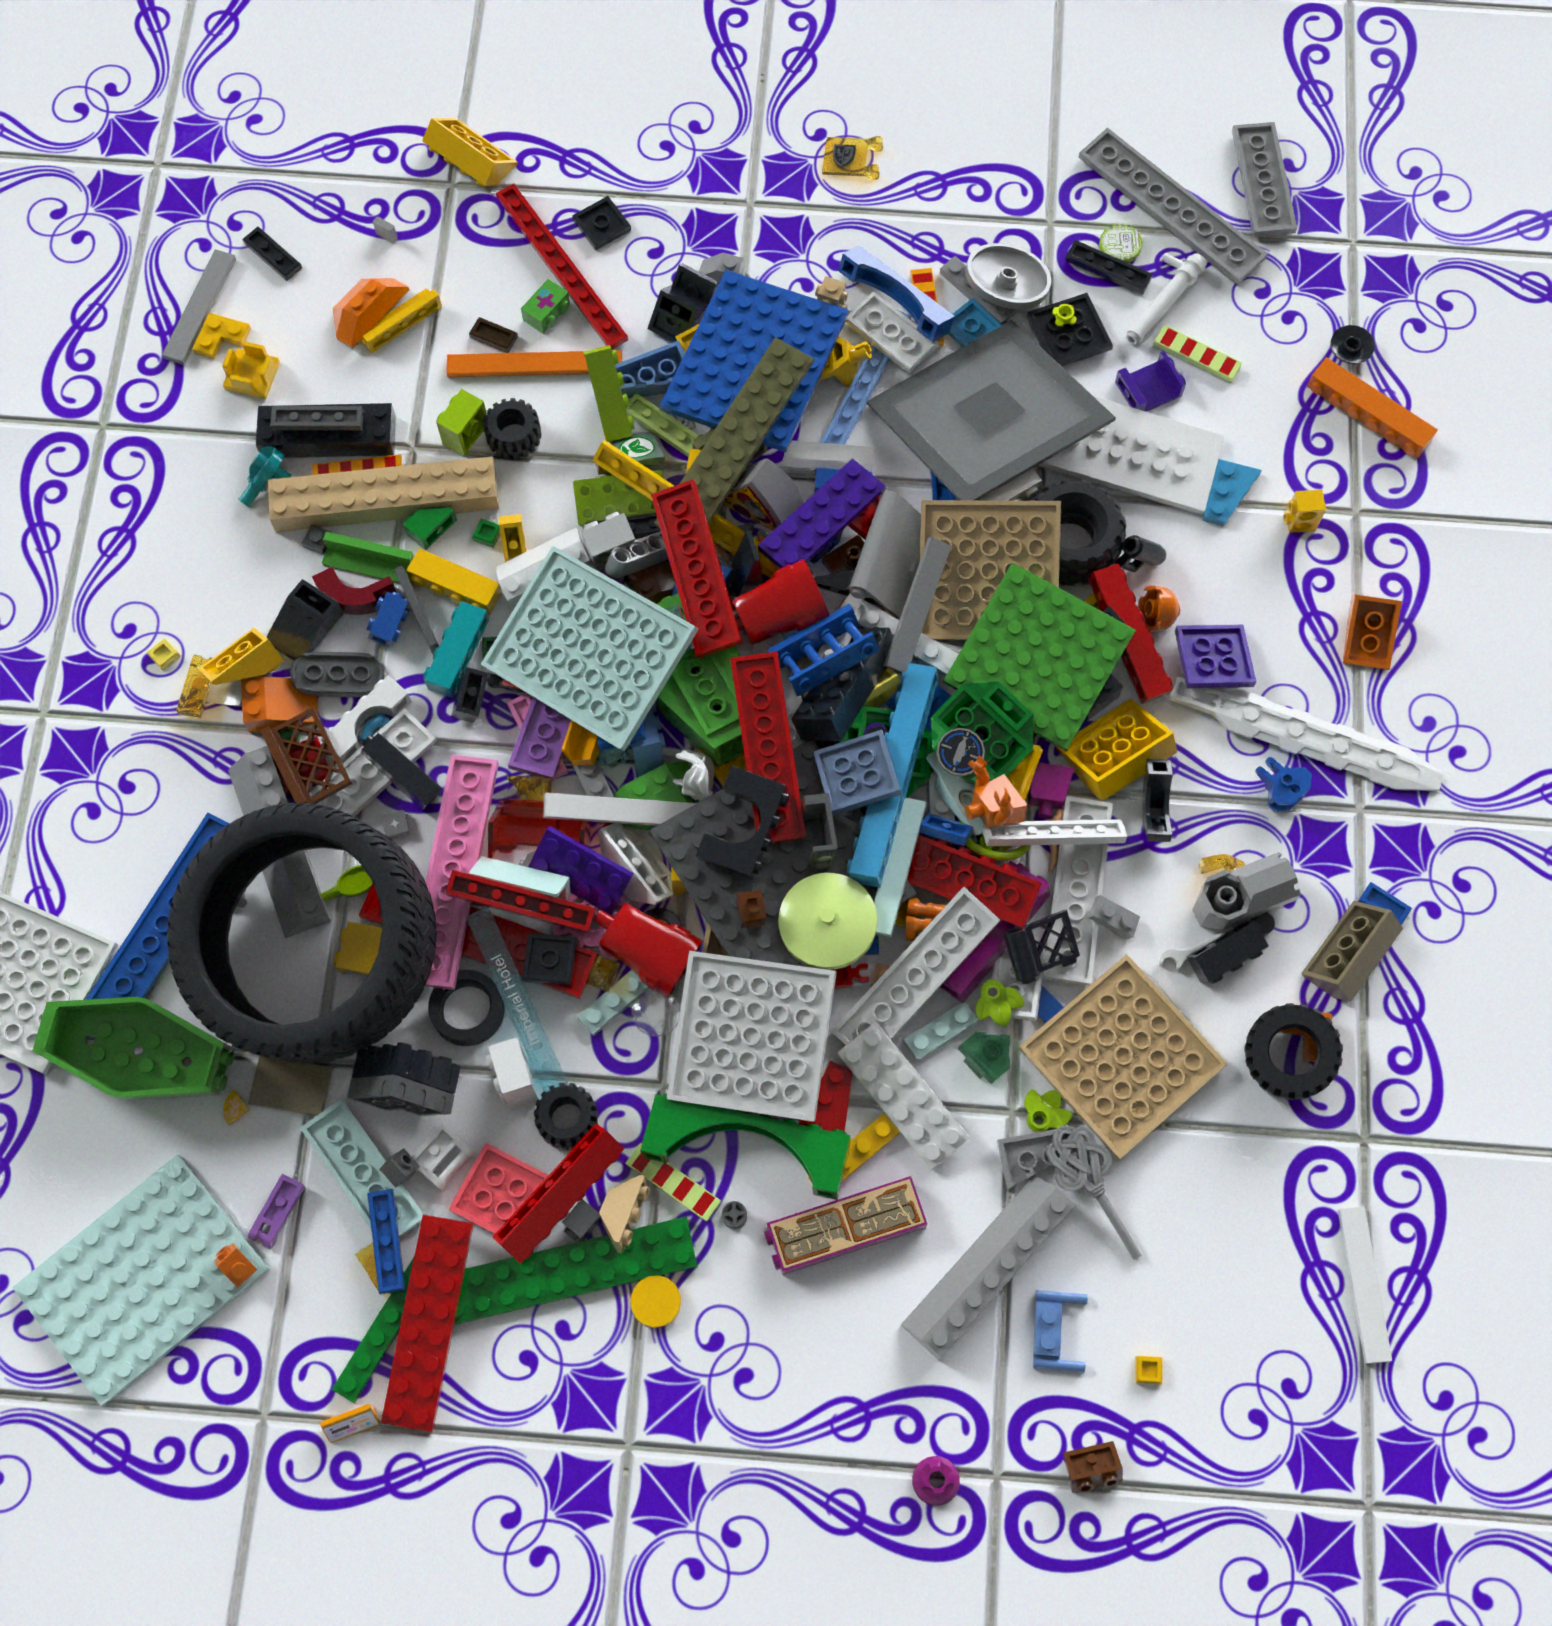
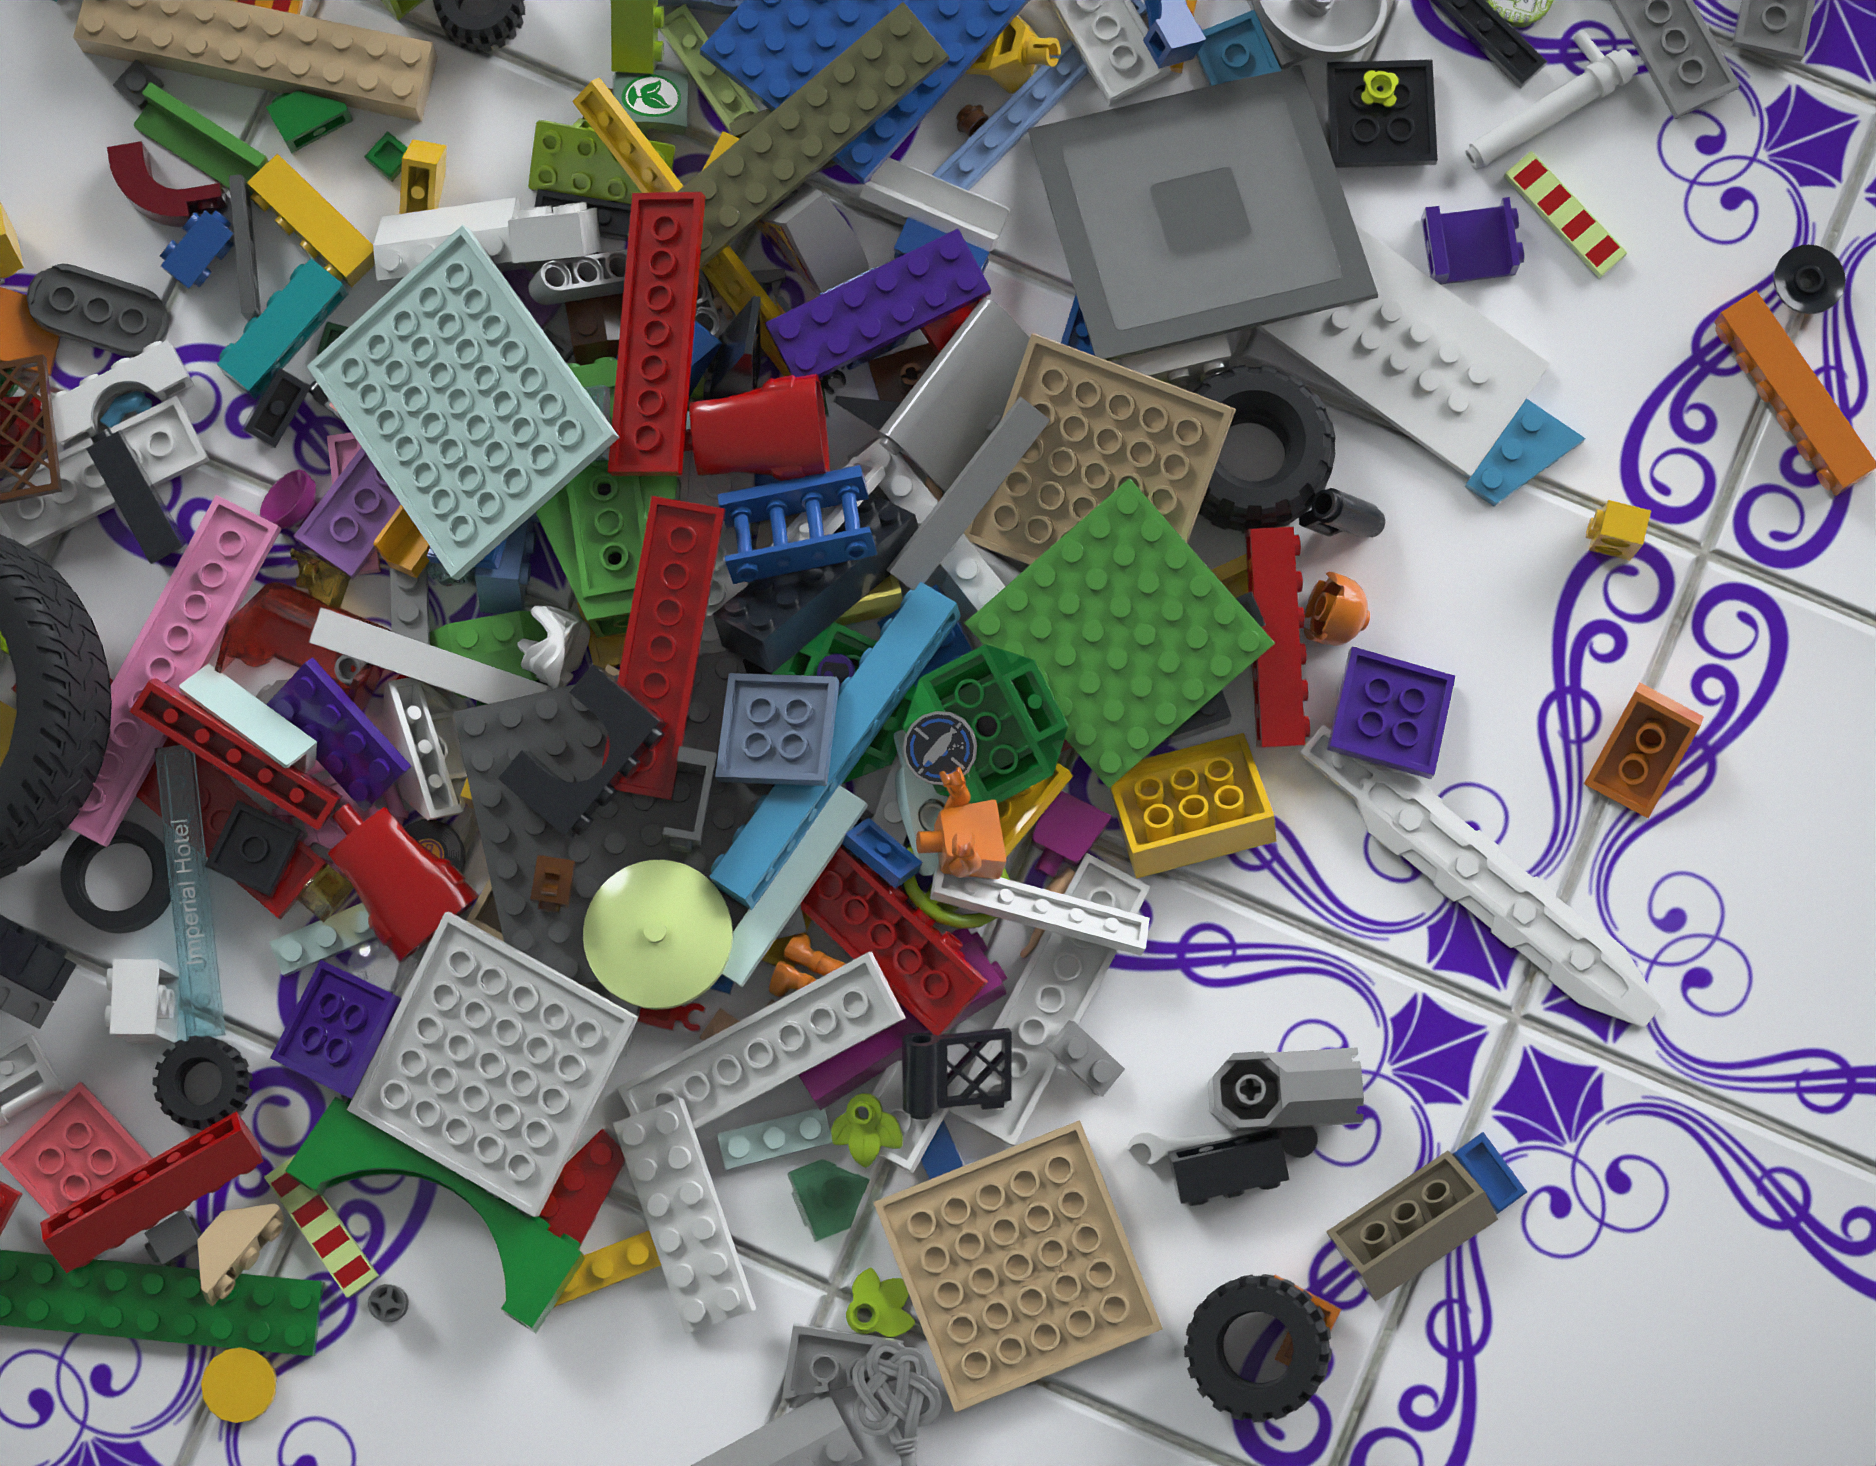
camera: 20 degrees right, 10 degrees up
(303, 620) = (74, 212): black slope -> none
(395, 824) = (108, 568): light grey tile -> none
(498, 745) = (290, 500): none -> magenta piece
(568, 828) = (343, 668): none -> light grey plate
(641, 1052) = (336, 1028): none -> dark purple plate
(830, 405) = (971, 119): none -> reddish brown plate
(845, 1225) = (535, 1372): brick -> none
(1156, 800) = (1214, 908): black arch -> none
(1219, 861) = (1289, 1037): clear yellow slope -> none
(1286, 787) = (1414, 941): blue hinge -> none

